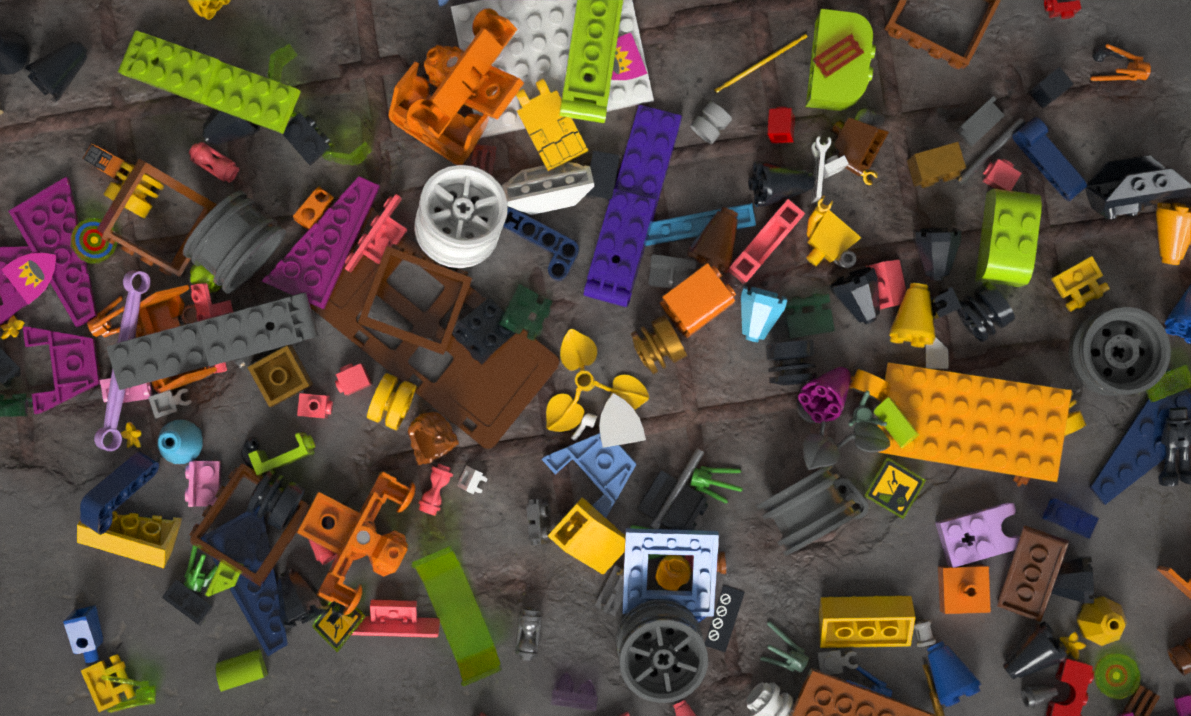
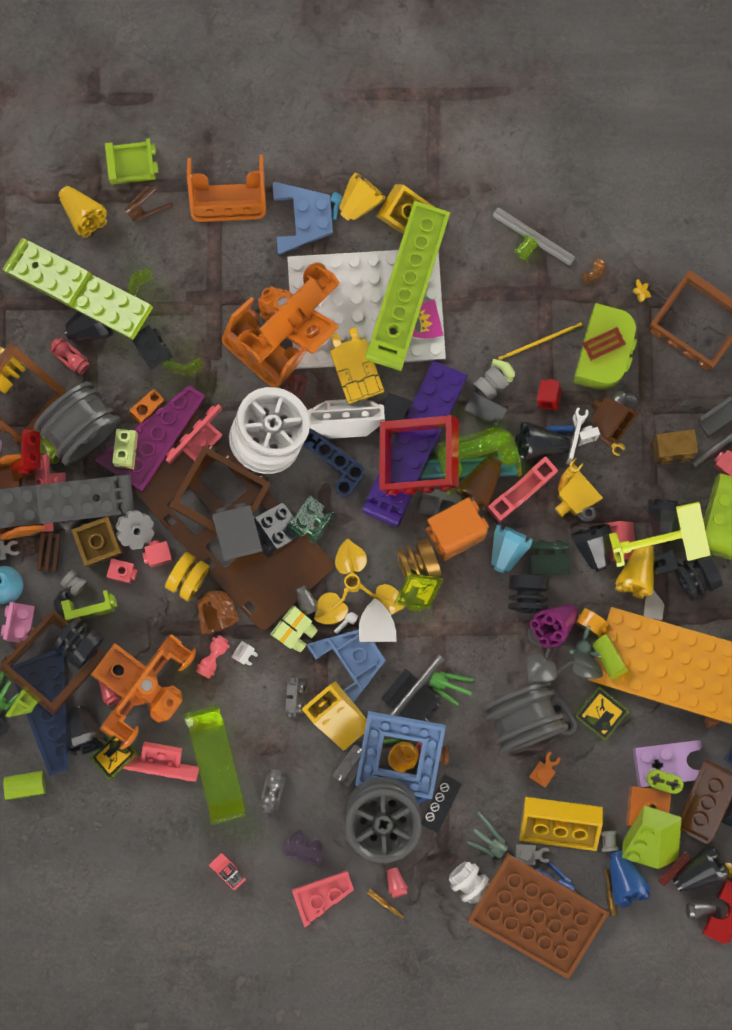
camera: 10 degrees right, 5 degrees down
(184, 285) = (29, 453): none -> red bracket
(217, 400) = (48, 552): none -> reddish brown tile
(260, 427) = (73, 583): none -> light grey wheel
(294, 266) = (125, 448): none -> yellowish green hips
(321, 355) = (134, 529): none -> light grey plant
(440, 342) = (236, 531): none -> dark grey slope
(521, 453) = (300, 623): none -> yellowish green hips
(534, 408) = (306, 601): none -> flat silver cone
(662, 379) = (418, 592): none -> clear neon green piece
(683, 237) = (452, 455): none -> red window
(703, 197) = (479, 444): none -> clear neon green windscreen
(710, 152) = (486, 408): none -> black hinge
(725, 101) = (506, 369): none -> yellowish green arm
(798, 163) = (561, 429): none -> blue piece
(837, 565) = (542, 772): none -> orange plate
(972, 263) = (691, 531): none -> neon yellow piece
(975, 625) = (653, 838): none -> lime wedge
(979, 562) = (666, 777): none -> lime beam
(1003, 655) = (674, 869): none -> clear red tile

